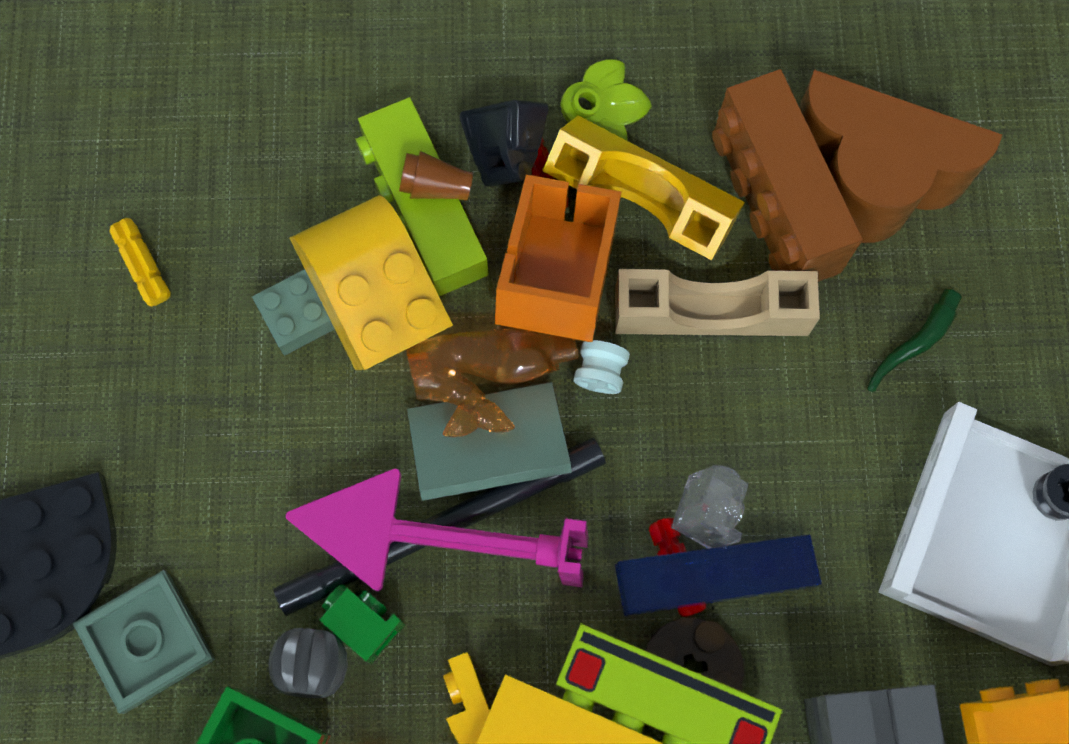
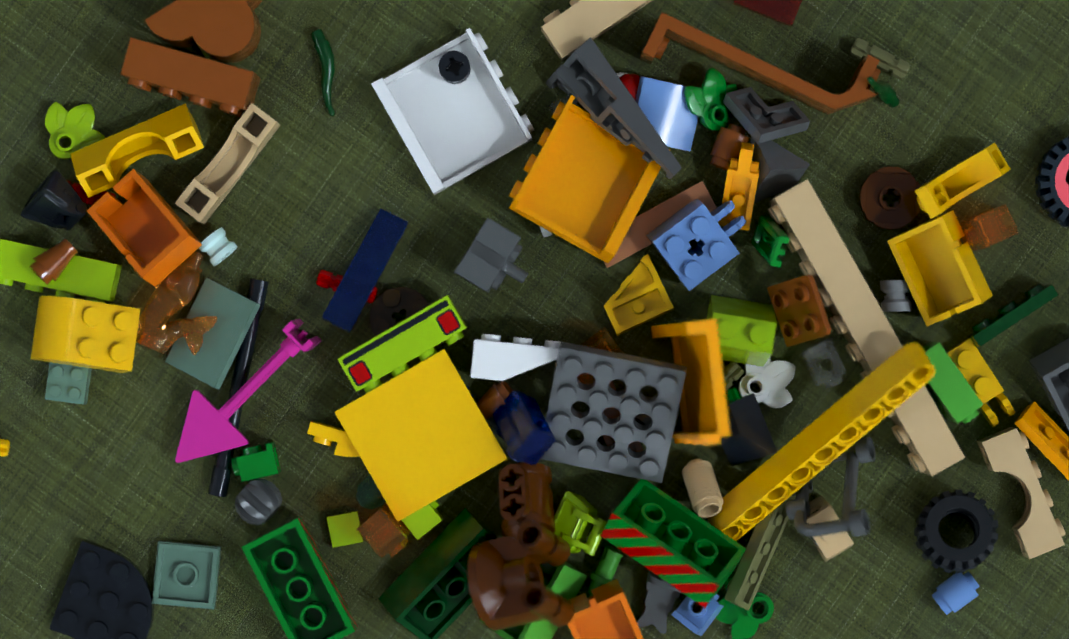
camera: 50 degrees left, 15 degrees up
(712, 507) = (330, 247): clear brick -> none

